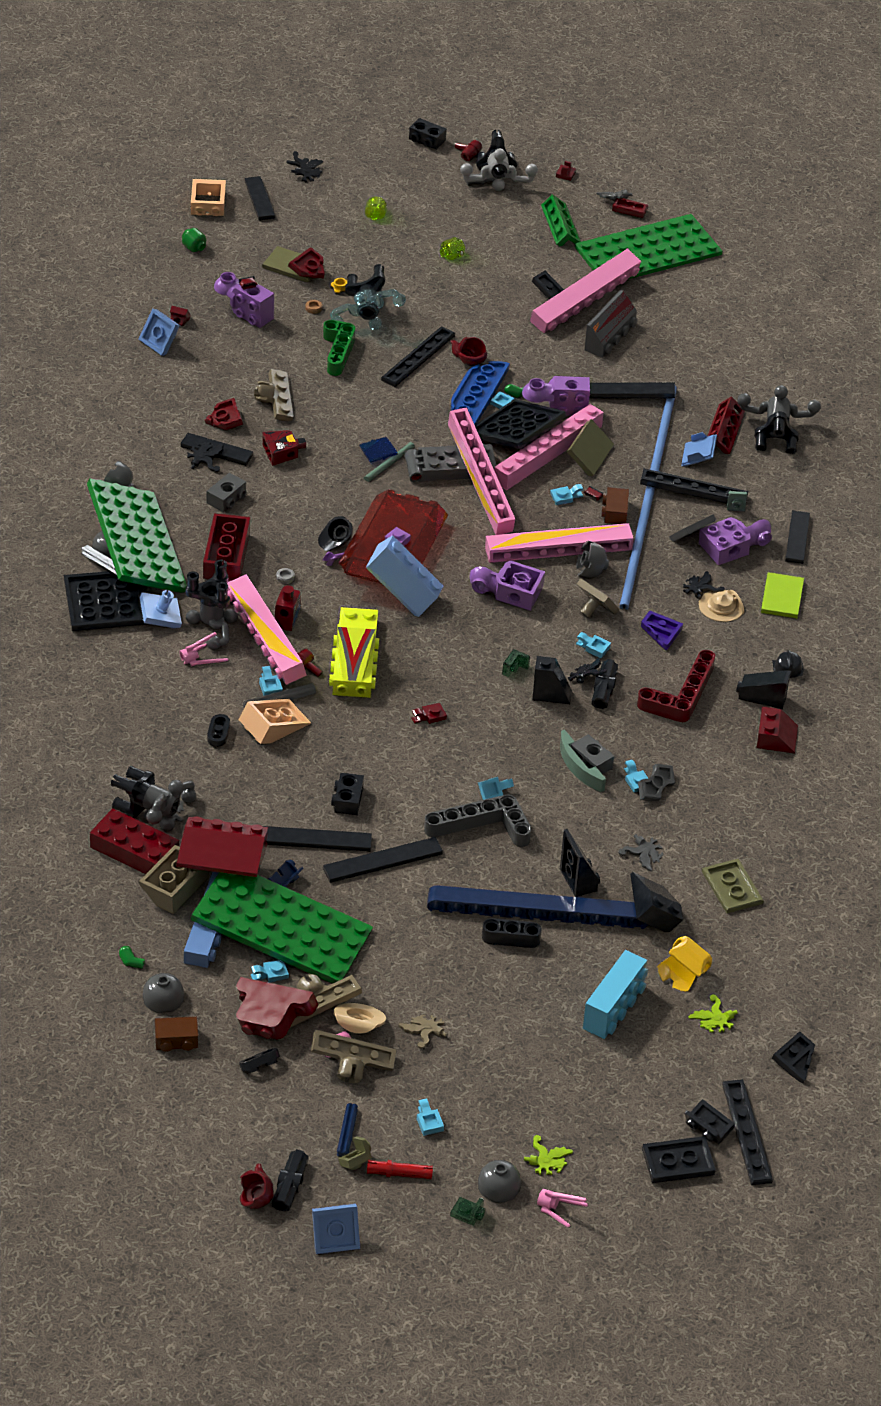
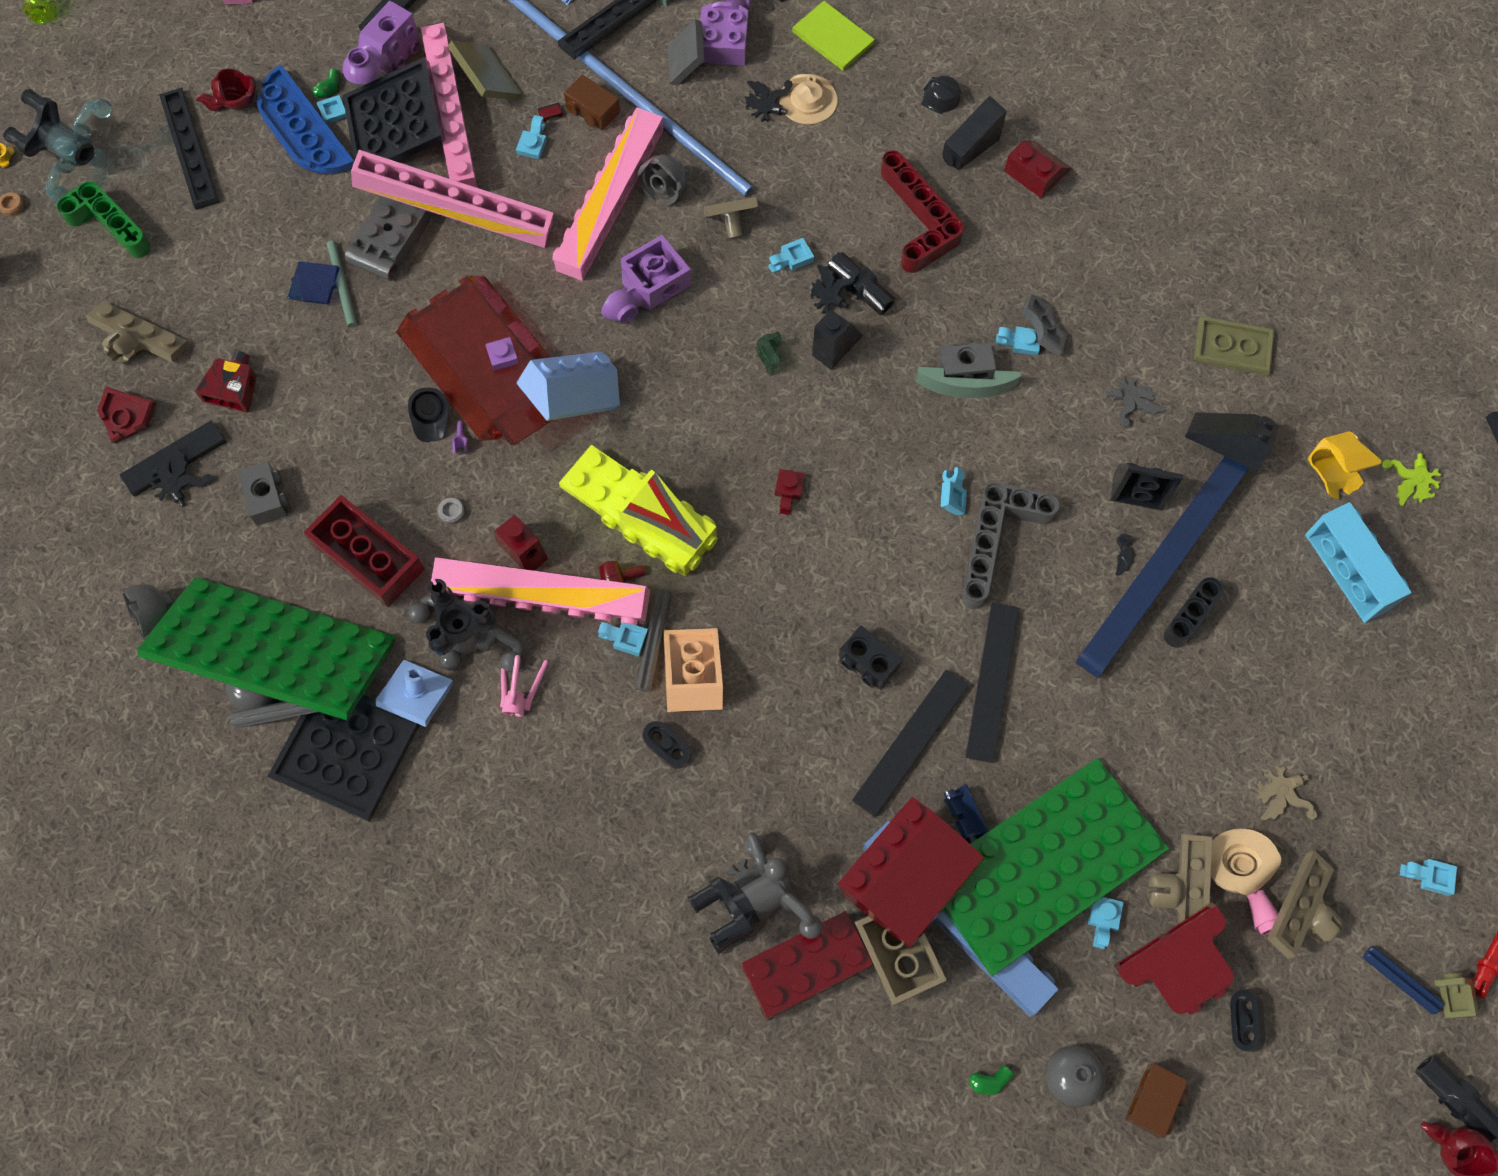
camera: 55 degrees left, 25 degrees up
(535, 884) = (1124, 558): none -> black piece
(661, 628) = (810, 176): dark purple wing -> none

